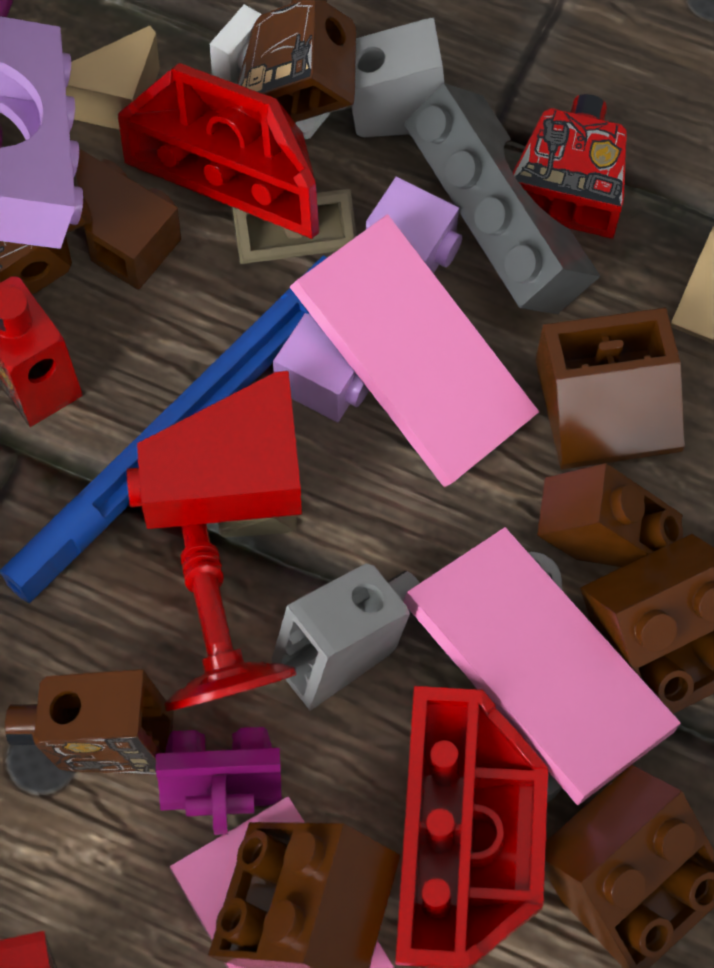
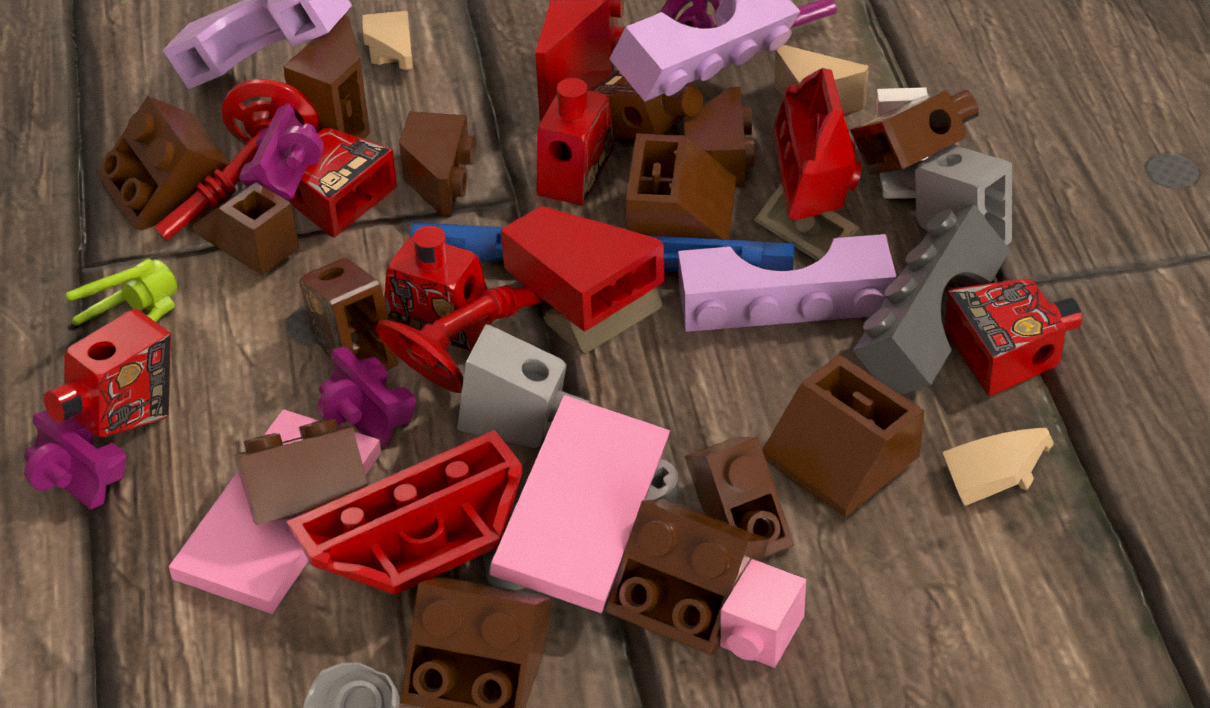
camera: 60 degrees right, 20 degrees down
(132, 615) = (432, 281): none -> red torso
(172, 309) = (678, 190): none -> reddish brown slope
(415, 350) = (758, 314): bright pink tile -> none

